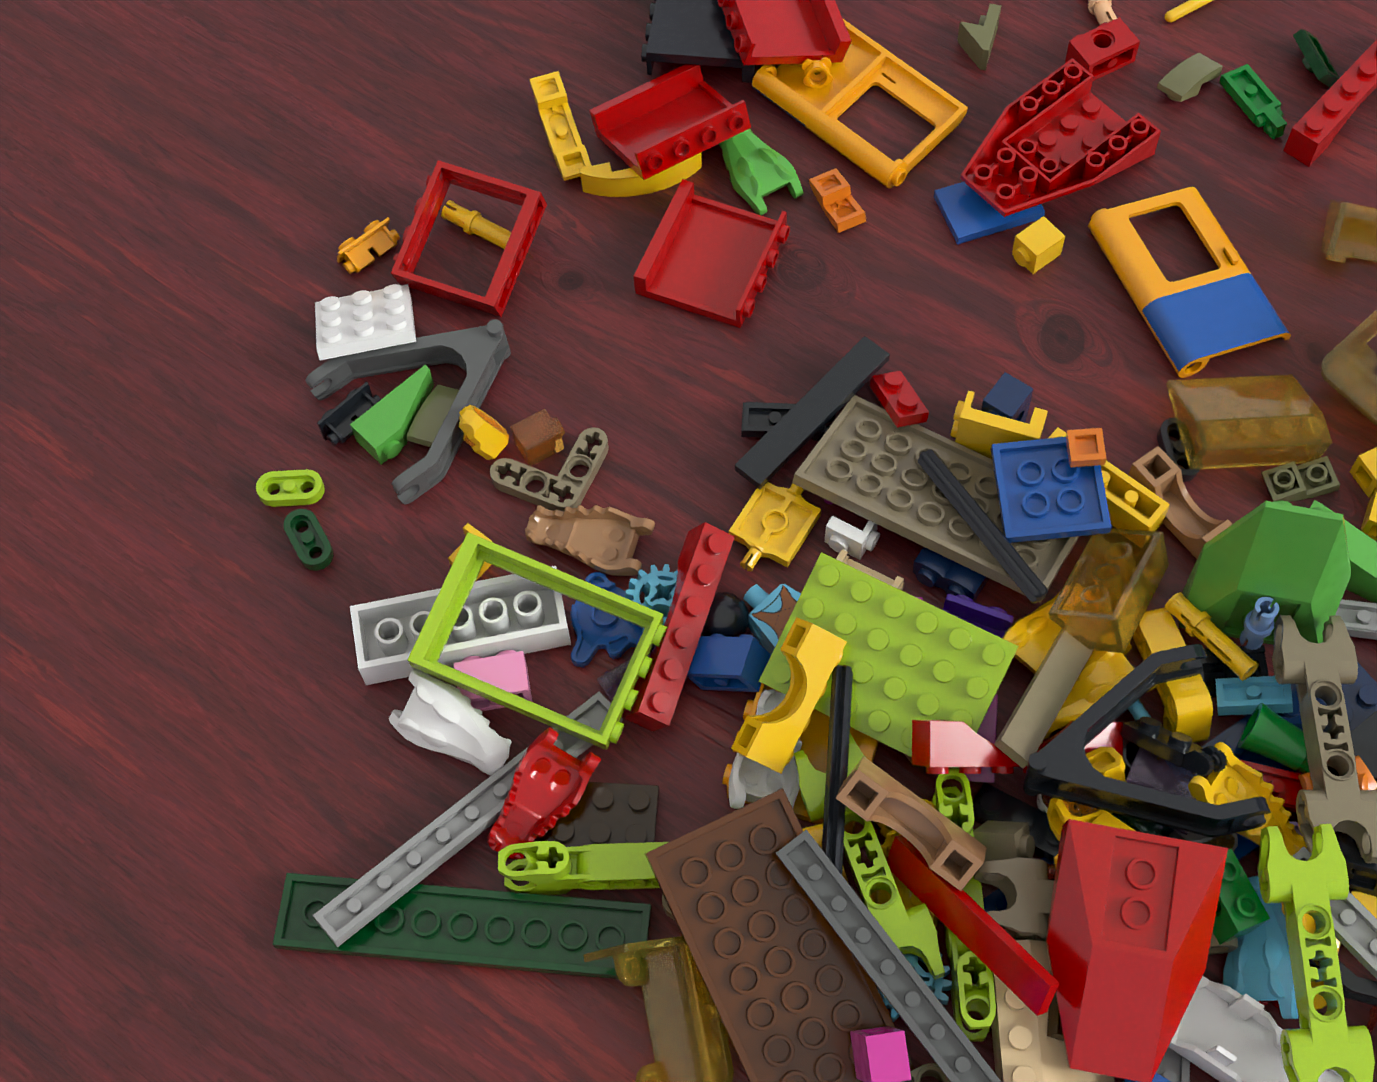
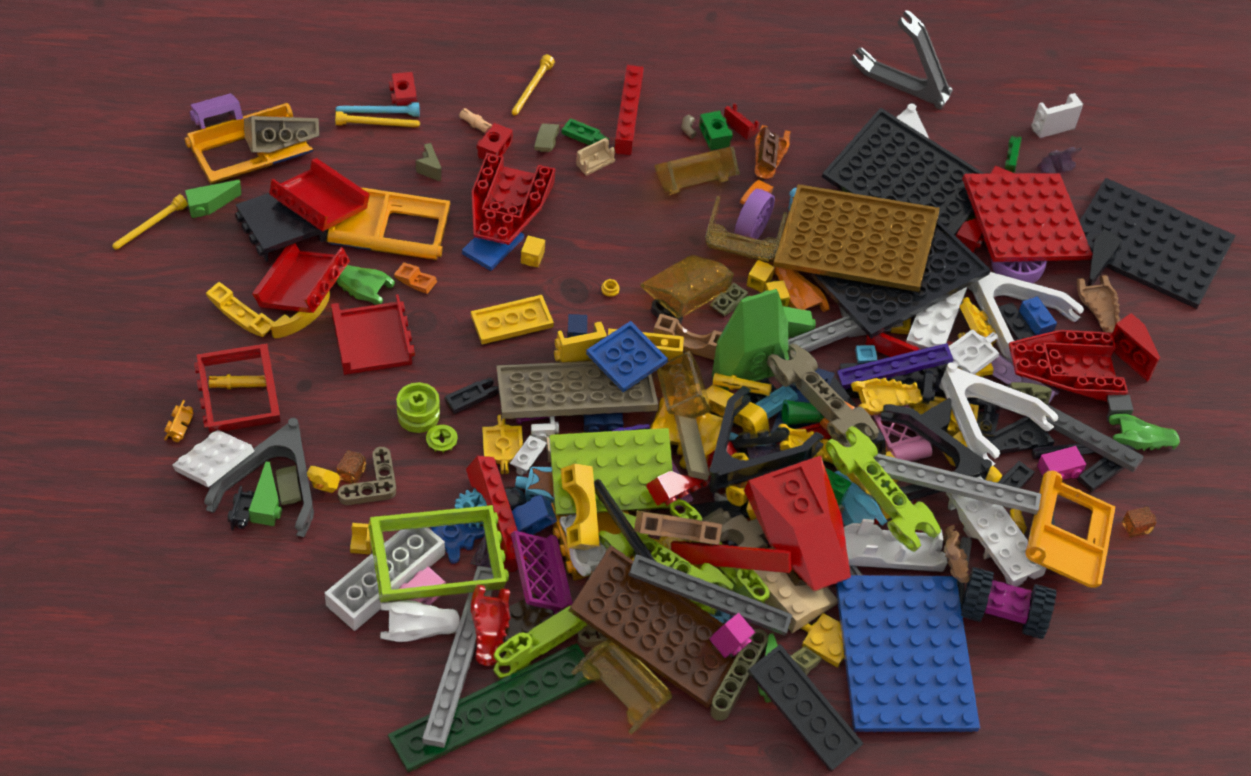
camera: 45 degrees left, 10 degrees down
(291, 487) = (235, 561): lime plate -> none
(309, 541) = (269, 580): dark green plate -> none
(594, 536) = (418, 496): medium nougat animal -> none
(691, 452) = (448, 434): none -> lime gear
(692, 398) = (418, 407): none -> lime wheel
(701, 768) = (552, 570): none -> magenta fence
(795, 559) = (528, 454): none -> white hinge
(811, 412) = (484, 383): black tile -> none
(819, 79) = (359, 219): light orange plate -> none
(899, 399) = (520, 356): red plate -> none
(933, 334) = (512, 319): none -> yellow plate
(983, 526) = (607, 389): black axle -> none
(1086, 447) = (632, 327): orange plate -> none
(1122, 356) = (610, 288): none -> yellow plate
(1196, 314) = (629, 249): piece -> none
(1244, 142) = (595, 157): none -> tan hinge
(1259, 623) = (760, 365): medium blue pin -> none
(1316, 58) = (600, 102): dark green plate -> none

